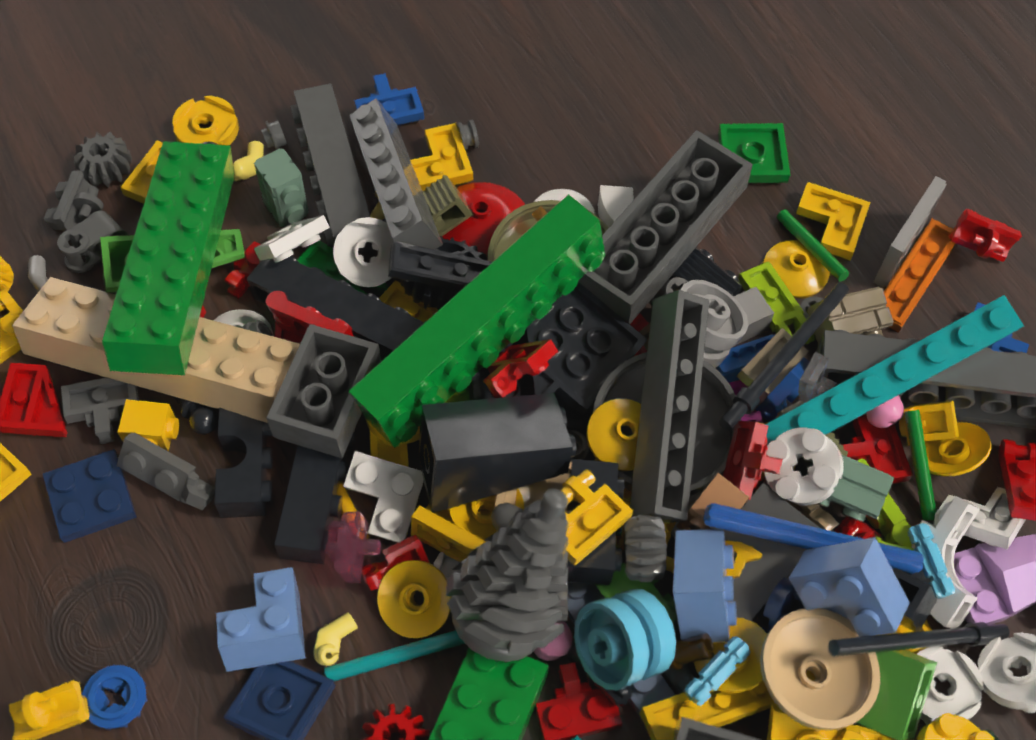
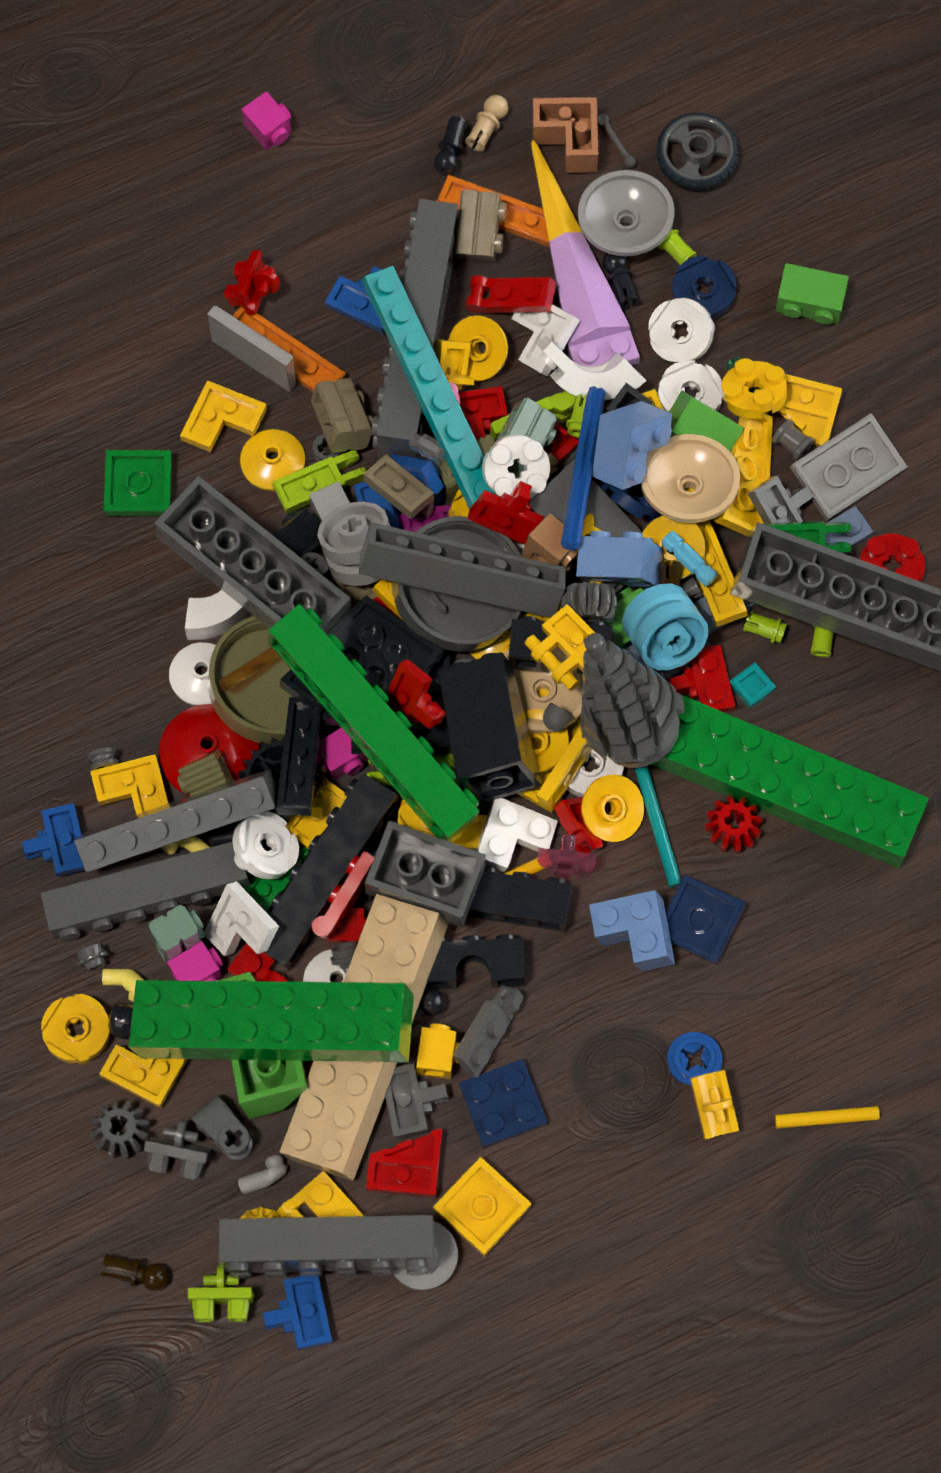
camera: 85 degrees left, 10 degrees up
(253, 212) = (196, 964): none -> dark pink brick
(329, 639) = (643, 882): light yellow arm -> none
(605, 432) = (472, 630): yellow dish -> none
(748, 397) = (448, 506): black bar -> none
(813, 245) = (252, 440): green bar -> none
(920, 464) = (495, 377): green bar -> none
(933, 563) = (601, 379): medium azure axle -> none
(972, 633) = (649, 360): black bar -> none

